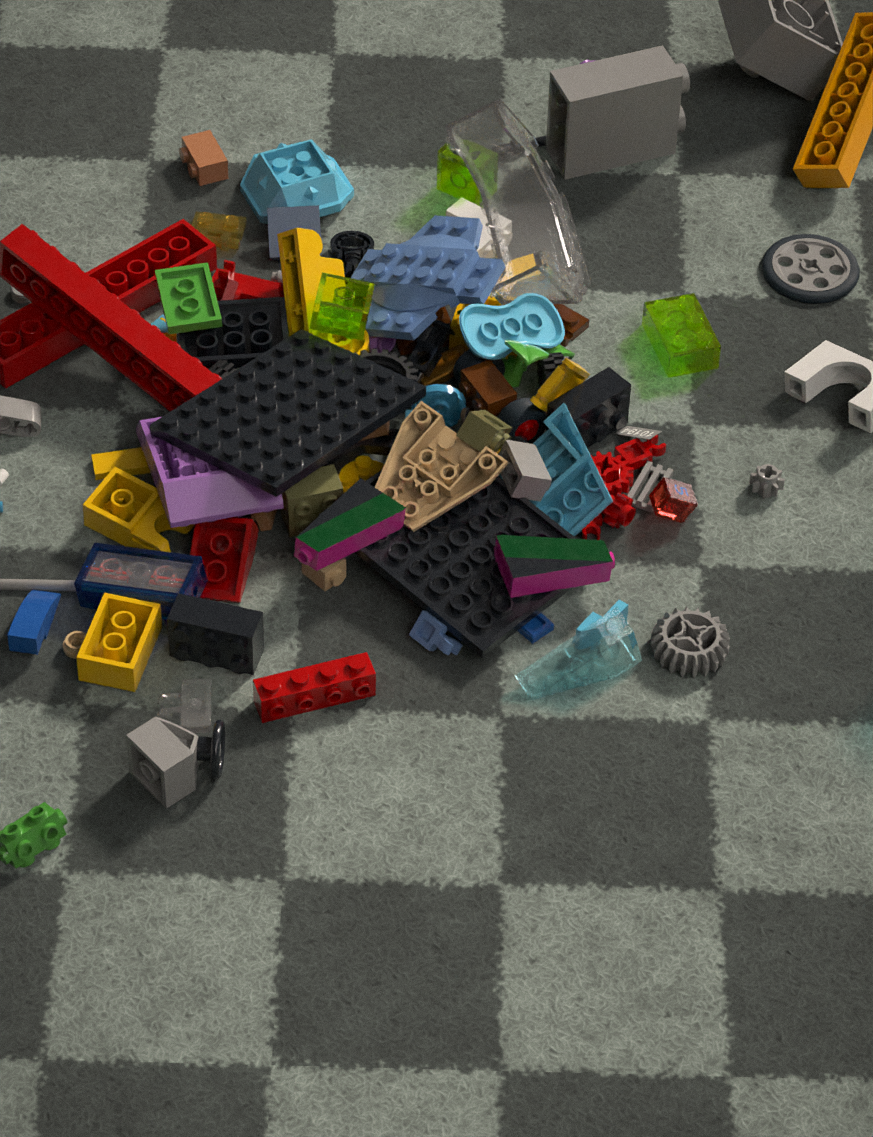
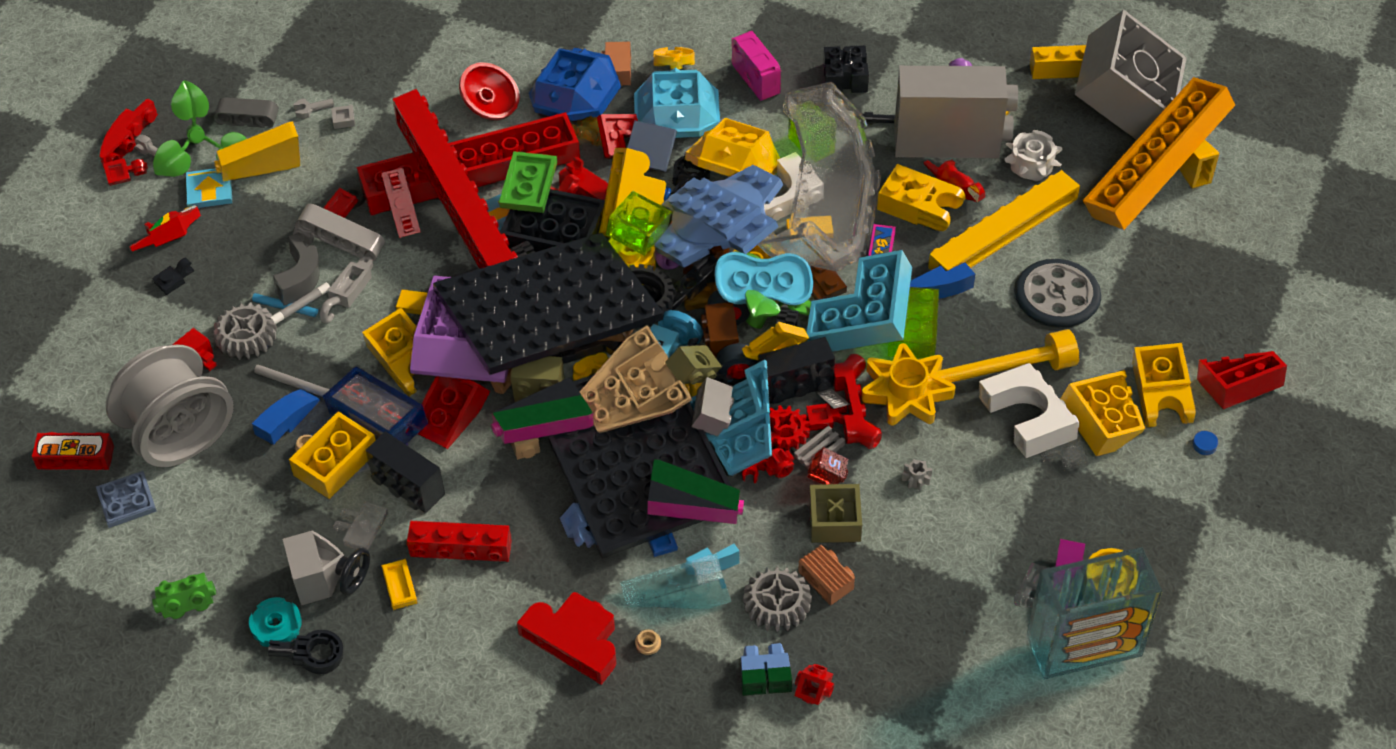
camera: 25 degrees right, 5 degrees up
(23, 473) = (345, 290): none -> light grey piece
(43, 361) = (400, 202): none -> red plate
(75, 221) = (493, 84): none -> red dish
(154, 846) = (264, 615): none -> teal plate
(170, 188) = (576, 84): none -> blue piece
(201, 853) = (300, 651): none -> black pin
(245, 227) = (613, 130): none -> red plate
(267, 133) = (674, 58): none -> yellow plate
(267, 753) = (399, 584): none -> yellow tile
(367, 120) = (756, 65): none -> dark pink axle
(389, 210) = (733, 148): none -> yellow piece
(461, 97) = (846, 68): none -> black brick
(494, 742) = (573, 634): none -> red brick
(576, 719) = (648, 635): none -> tan plate
(601, 269) = (882, 239): none -> tile
(620, 211) = (919, 198): none -> yellow brick
(641, 331) = (873, 312): none -> medium azure brick
(648, 186) = (948, 173): none -> red animal
(677, 452) = (855, 427): none -> red plate
(694, 38) = (1056, 61): none -> yellow brick
(701, 282) = (948, 282): none -> blue slope
(706, 540) = (835, 513): none -> olive brick
(715, 139) = (1033, 155): none -> white brick
(719, 715) = (754, 667): none -> hips
(720, 218) = (1007, 223): none -> yellow brick
(722, 396) = (915, 384): none -> yellow piece
(729, 602) = (826, 574): none -> nougat brick
(782, 719) = (807, 687): none -> red brick

